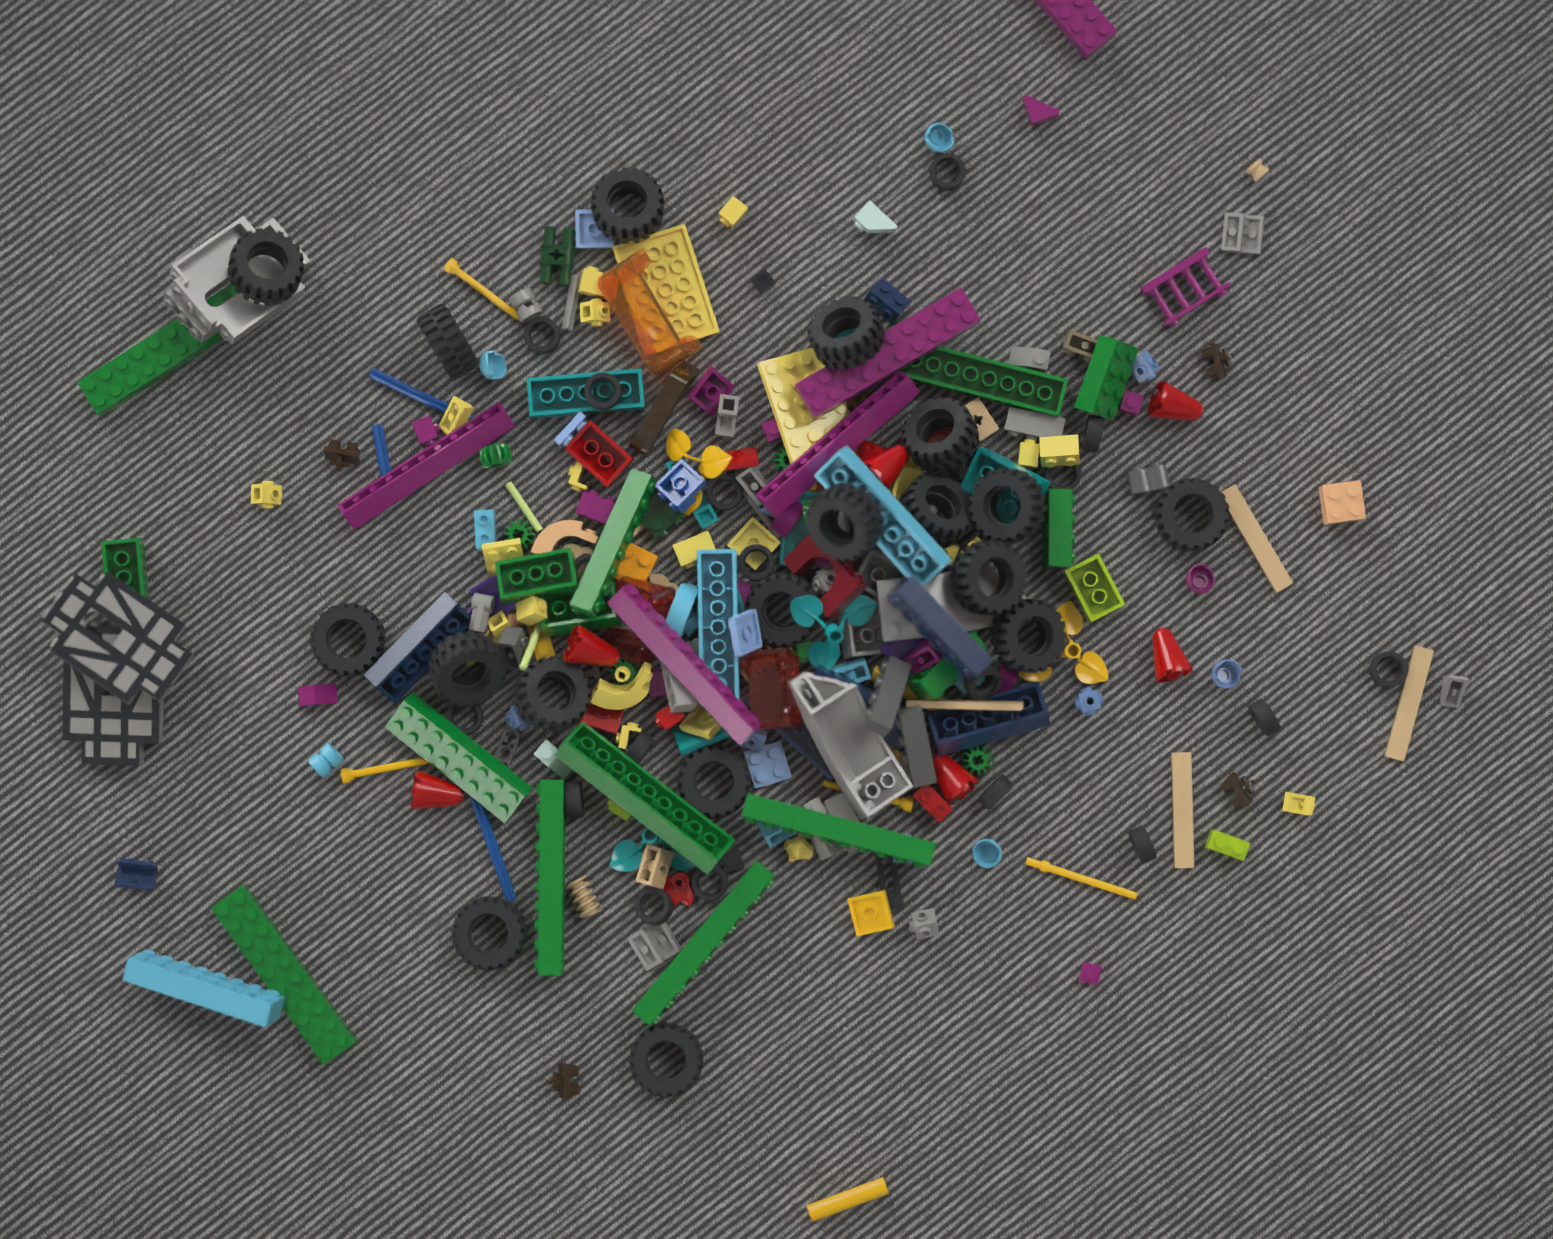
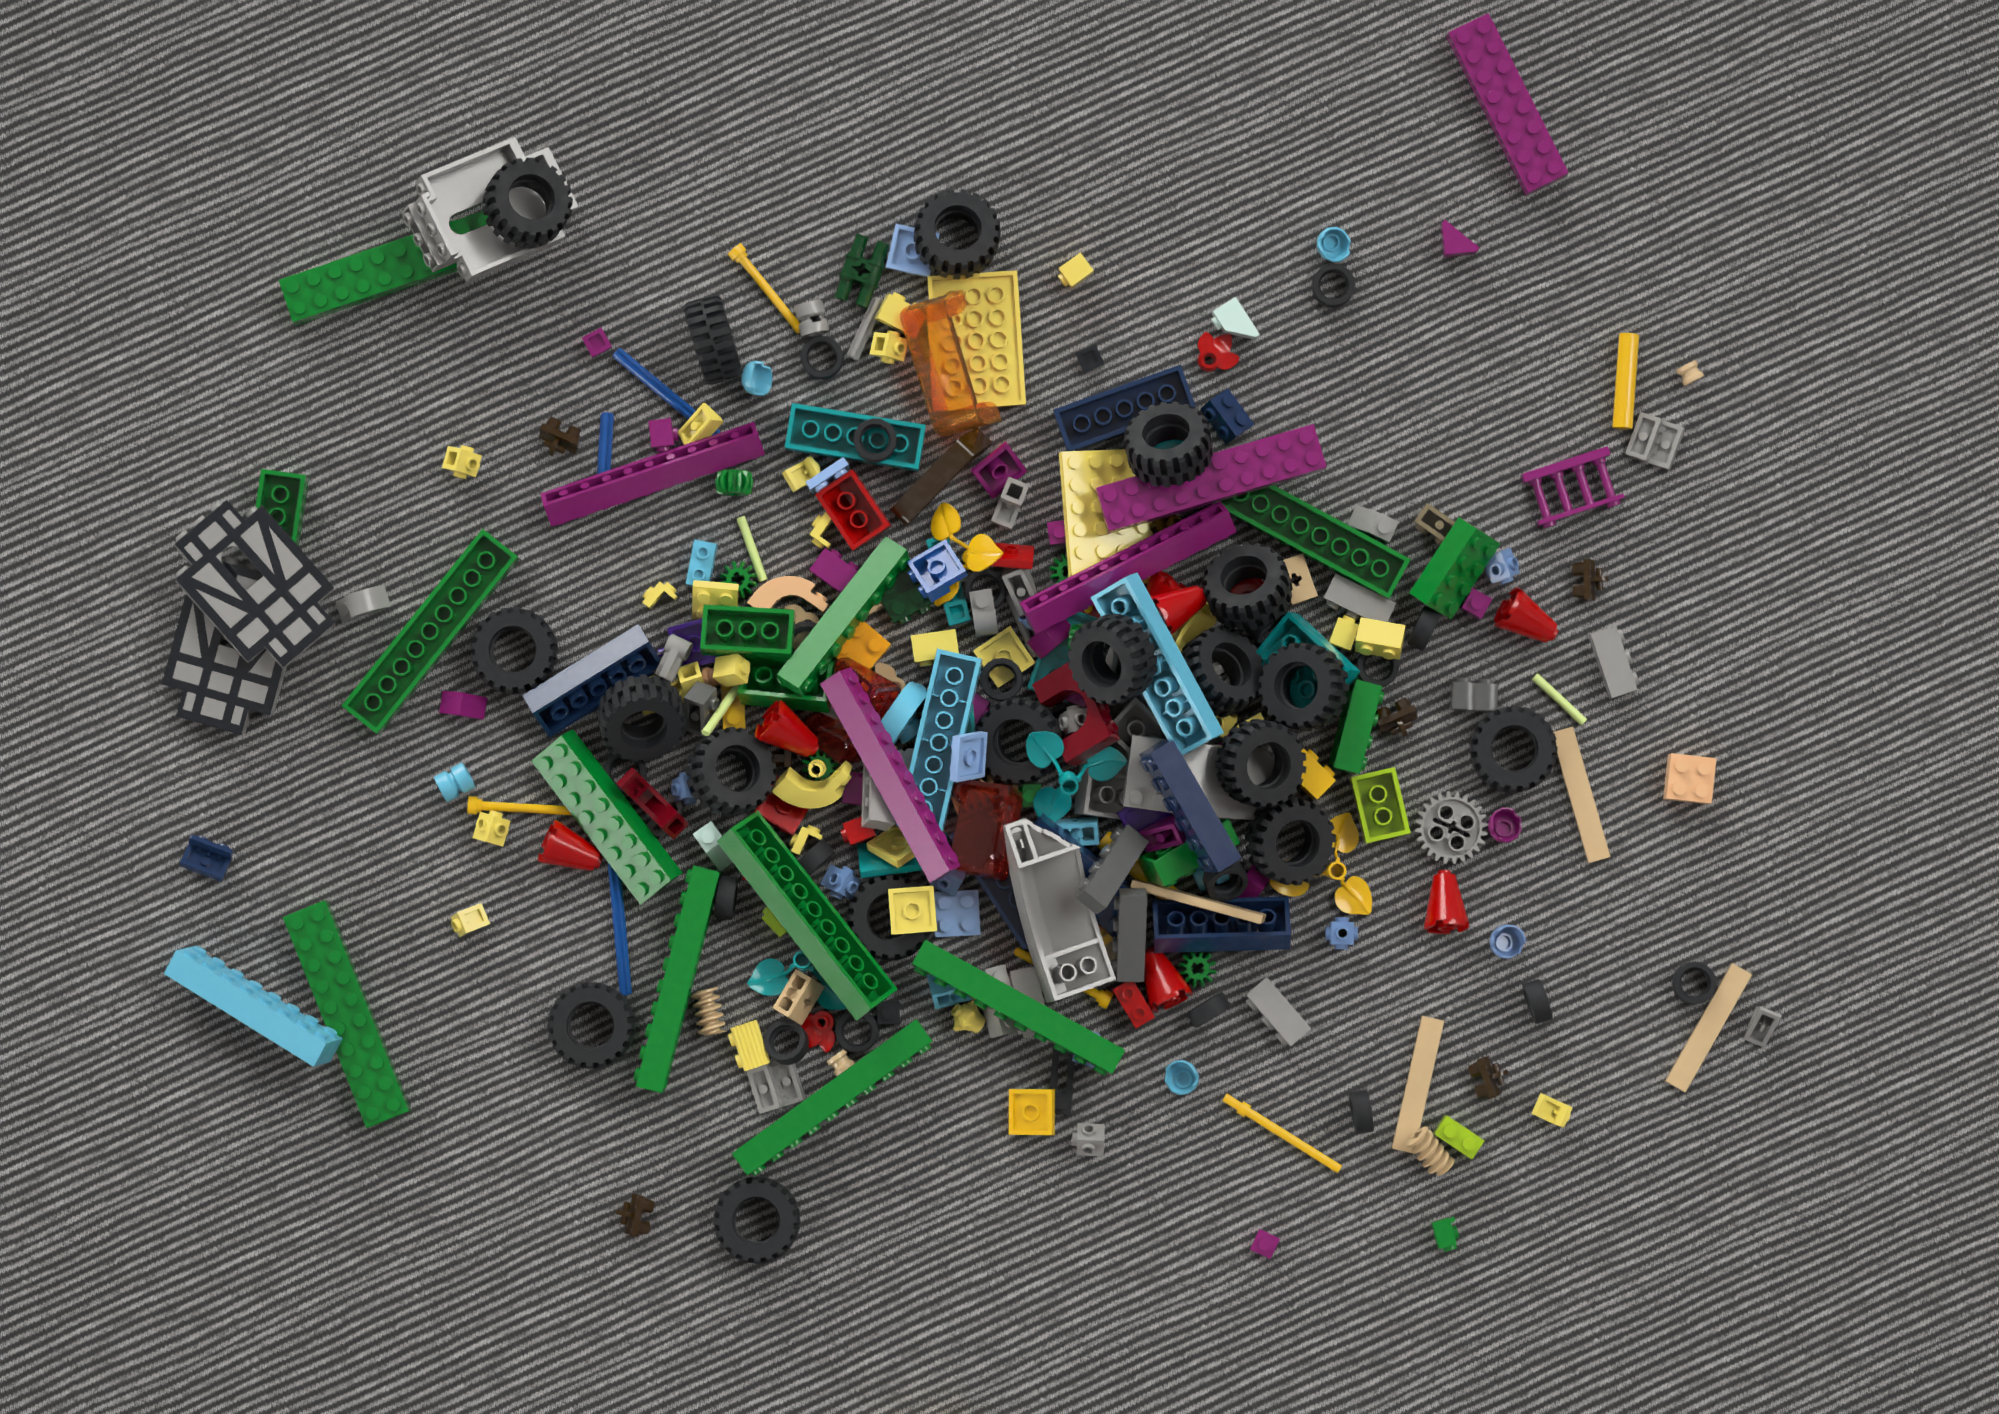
camera: 15 degrees right, 0 degrees up
(213, 631) = (363, 603): none -> light grey brick
(275, 641) = (430, 632): none -> green brick
(353, 369) = (597, 342): none -> magenta plate
(366, 790) = (491, 828): none -> light yellow brick
(366, 871) = (469, 920): none -> light yellow bracket
(452, 564) = (652, 595): none -> light yellow bracket
(494, 736) = (652, 803): none -> dark red arch
(546, 436) = (800, 473): none -> light yellow bracket
(624, 916) = (749, 1045): none -> light yellow brick
(666, 762) = (845, 883): none -> medium blue brick
(703, 911) = (840, 1062): none -> tan wheel
(728, 511) = (983, 613): none -> light grey brick
(731, 771) = (912, 910): none -> light yellow plate
(790, 320) = (1109, 412): none -> dark blue brick
(867, 248) = (1218, 350): none -> red plate
(1037, 578) = (1317, 778): none -> yellow slope
(1052, 779) = (1277, 1012): none -> light grey brick
(1091, 515) = (1398, 721): none -> dark brown hips
(1153, 609) = (1442, 846): none -> light grey gear
(1206, 190) = (1625, 381): none -> yellow piece
(1207, 863) = (1431, 1151): none -> tan piece
(1218, 464) = (1559, 699): none -> yellowish green bar
(1236, 927) = (1445, 1233): none -> green brick
(1255, 422) = (1613, 662): none -> light grey brick

